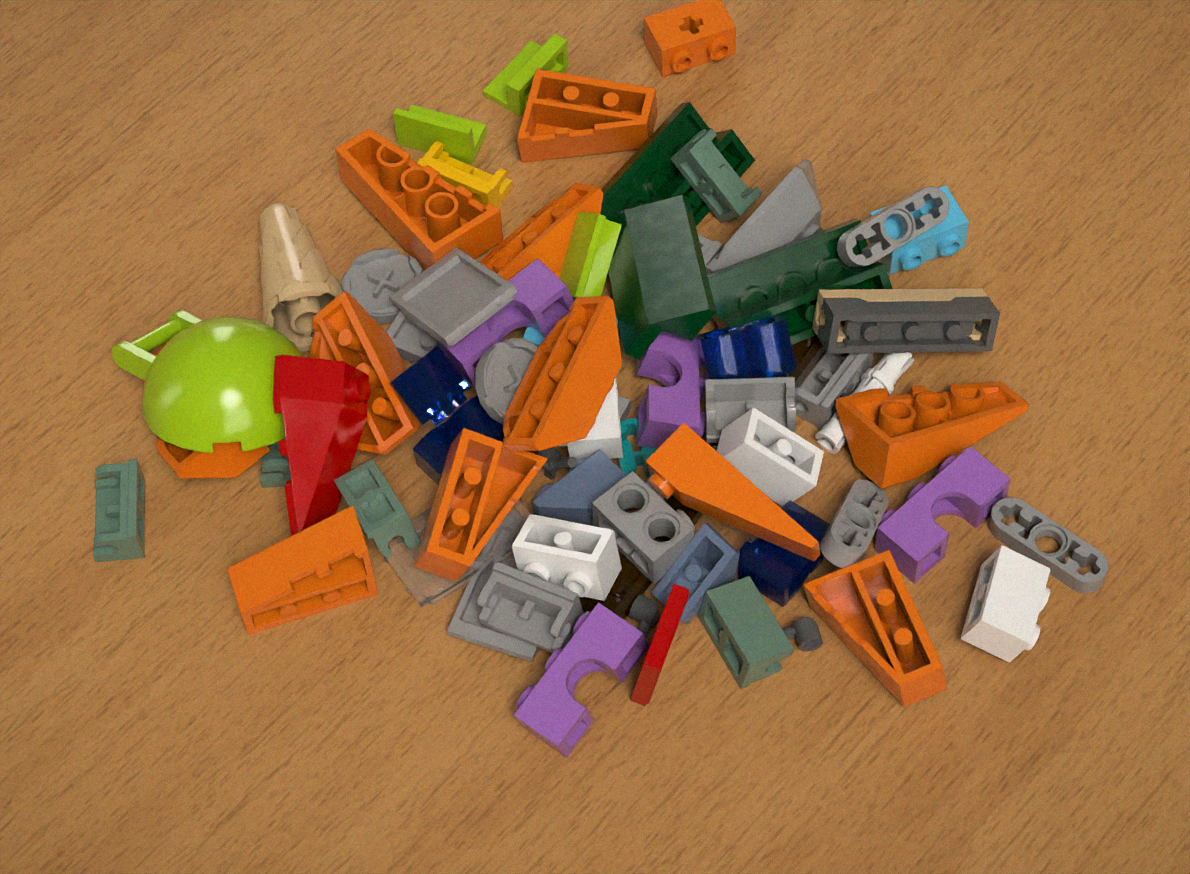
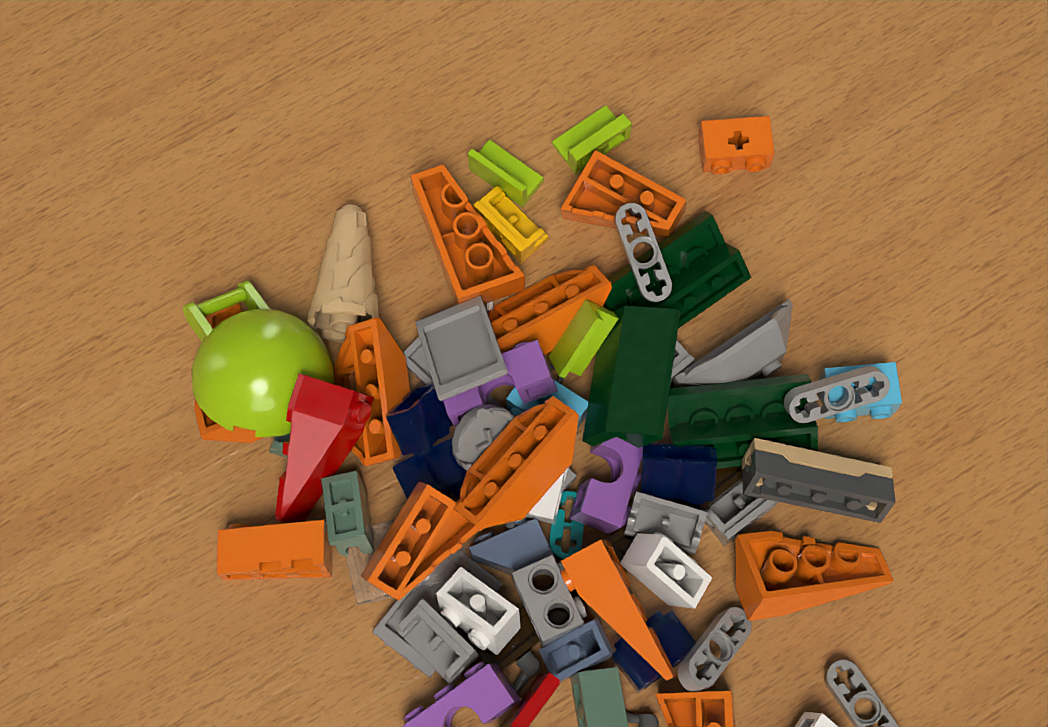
camera: 15 degrees right, 15 degrees up
(119, 512) = (154, 445): sand green hinge -> none
(376, 278) = (413, 297): light grey tile -> none
(617, 123) = (643, 224): none -> light grey beam
(714, 177) = (711, 292): sand green hinge -> none
(882, 375) = (776, 520): white pin -> none
(963, 488) = (815, 639): medium lavender arch -> none

